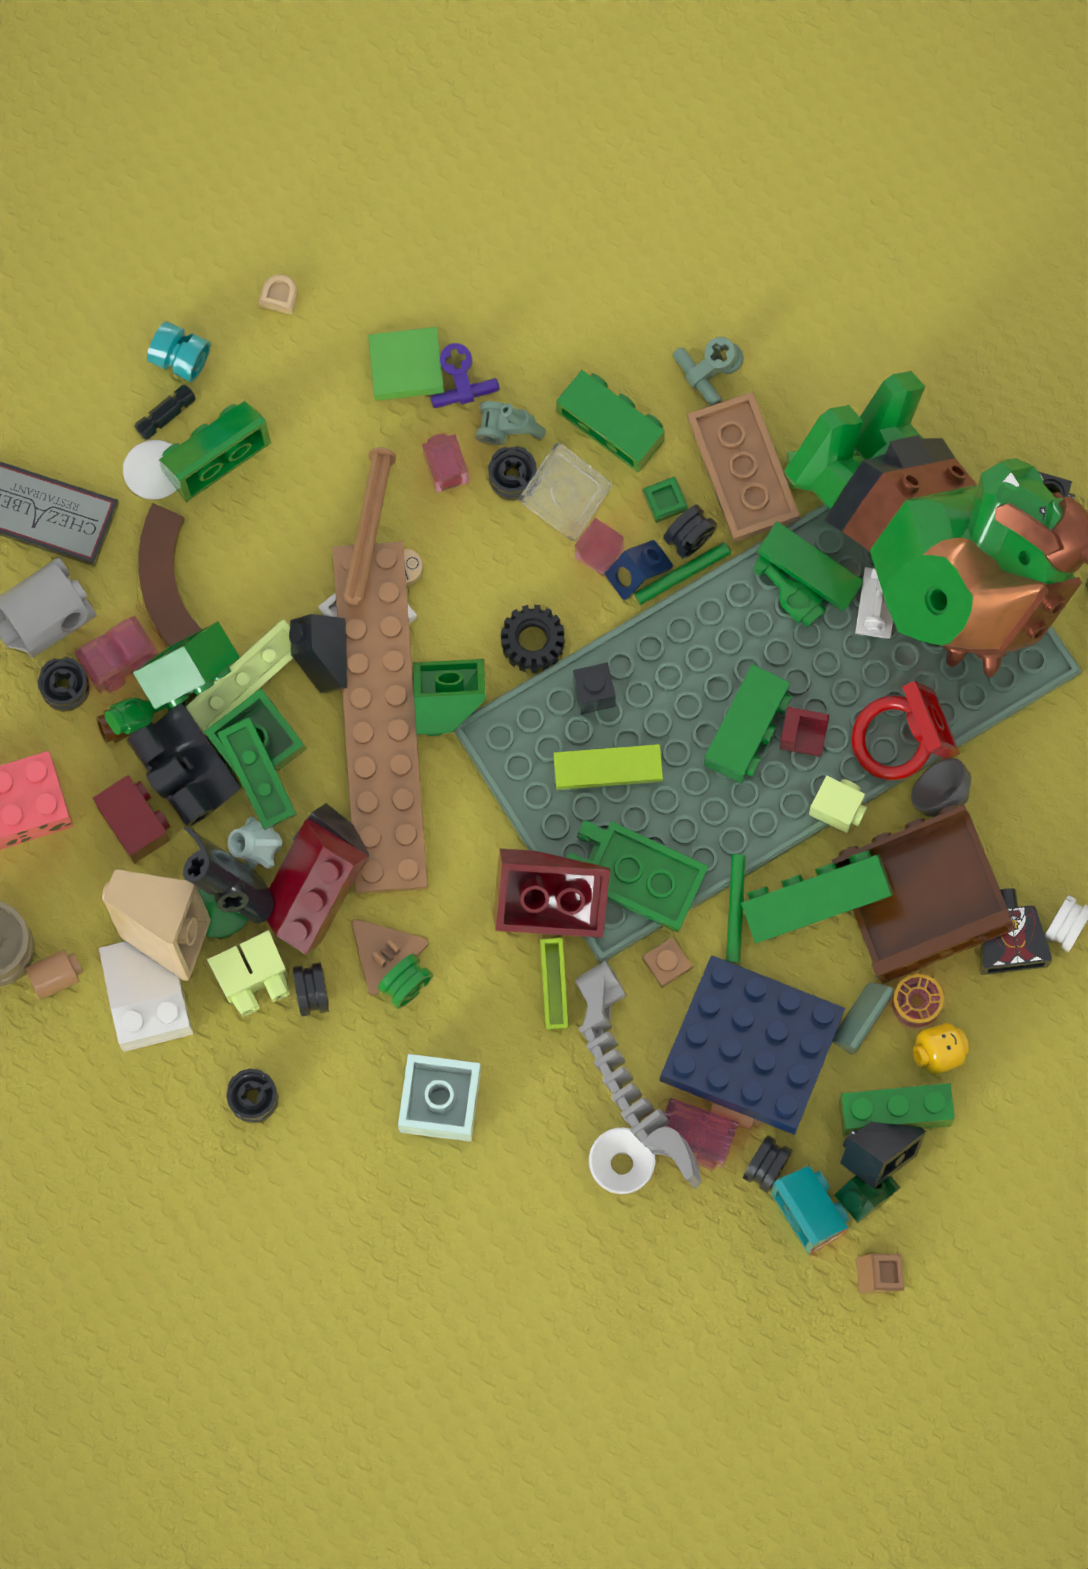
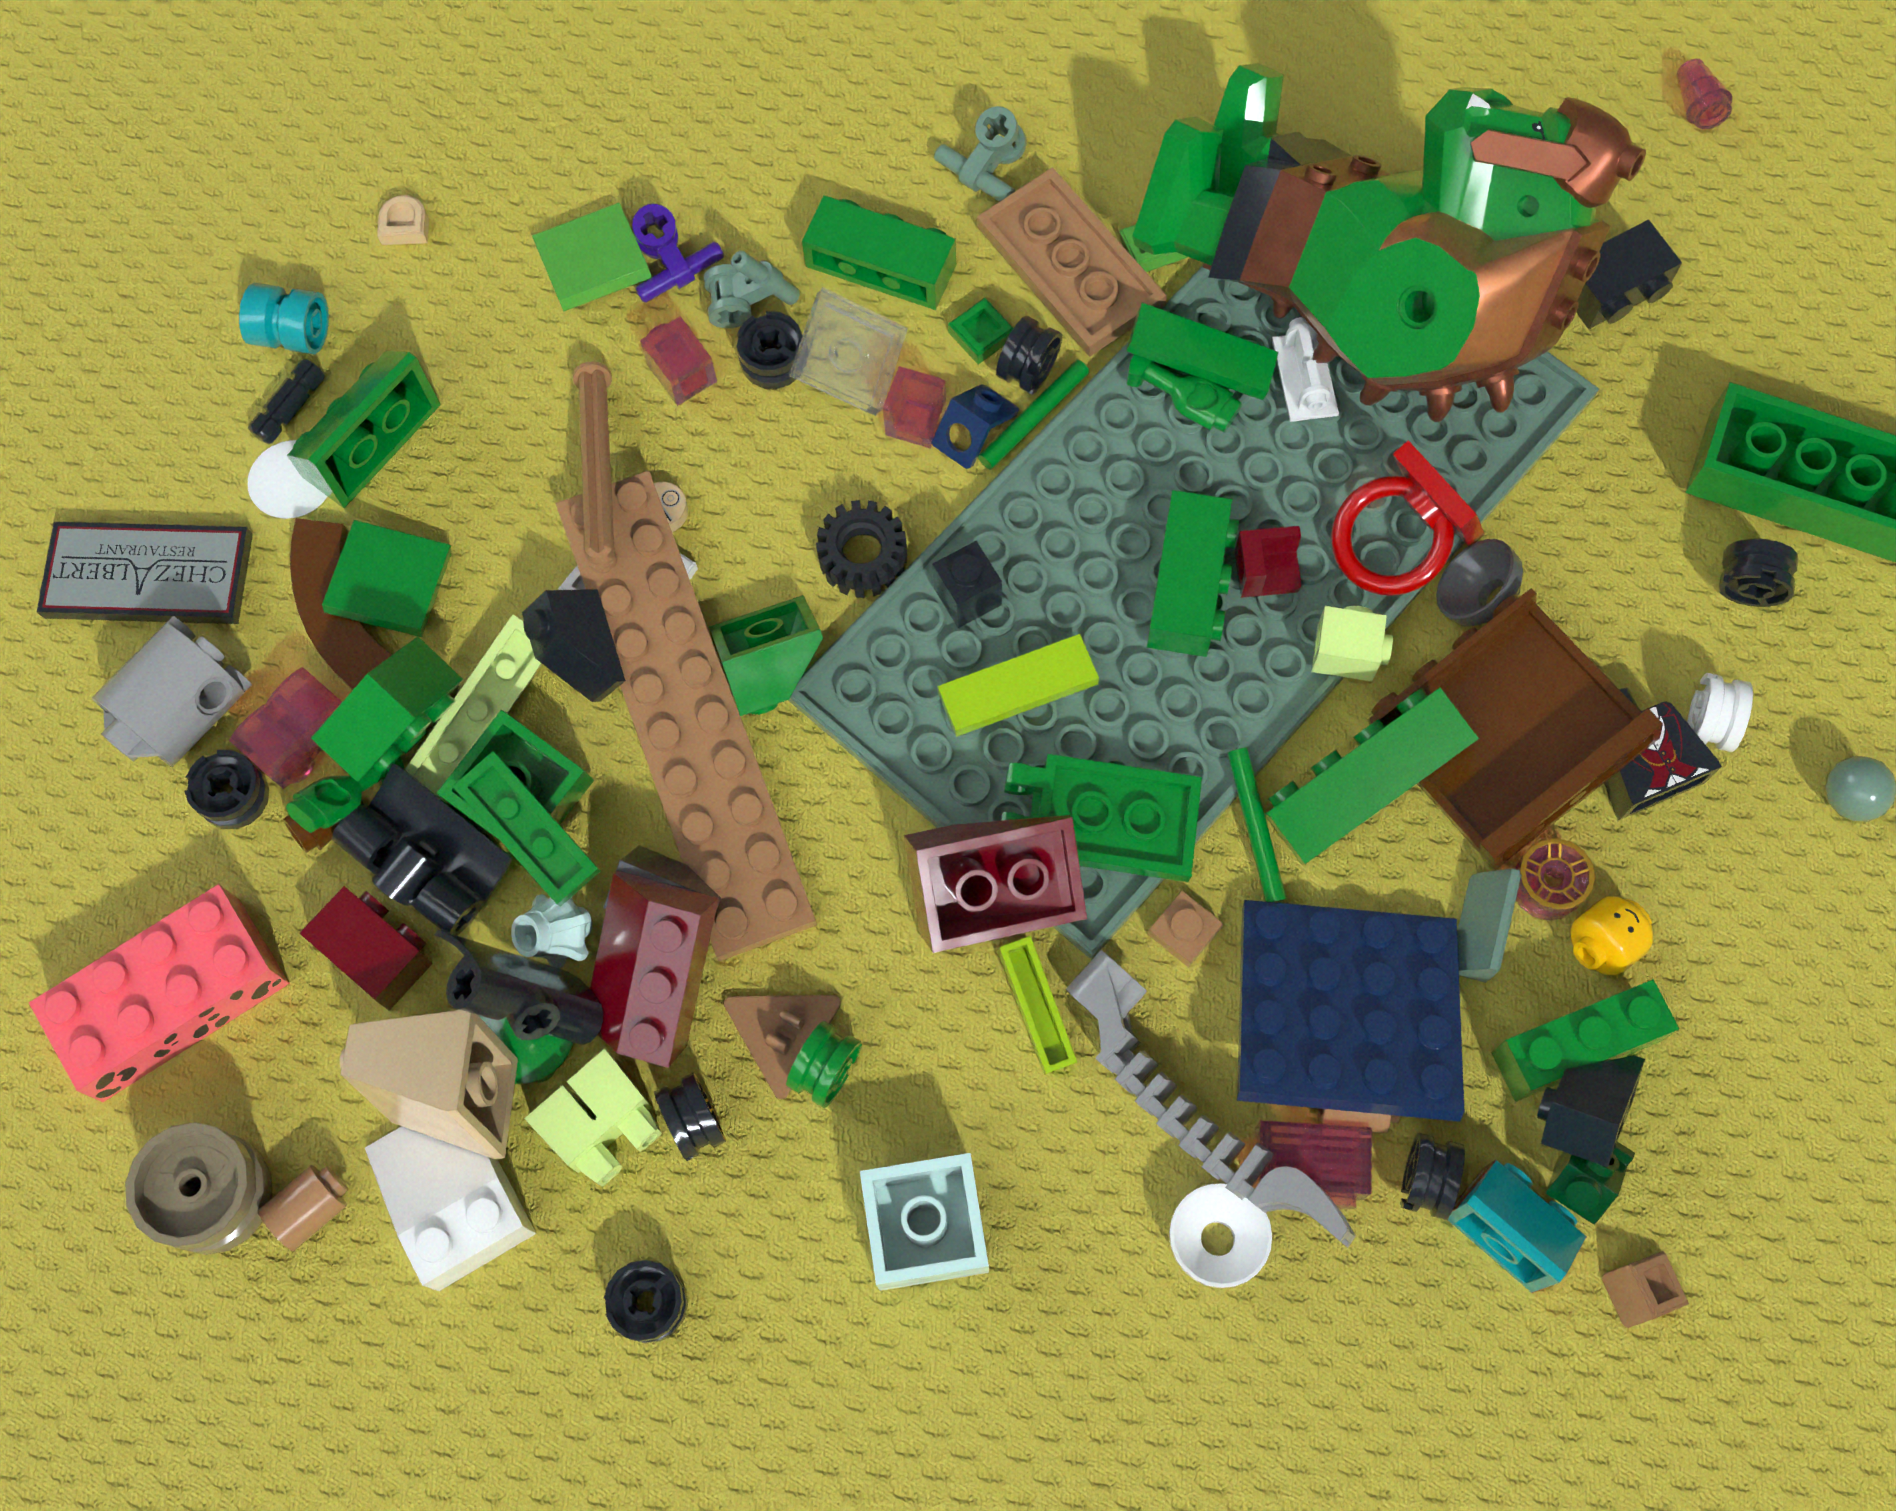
camera: 15 degrees left, 5 degrees down
(204, 566) = (387, 578): none -> green tile

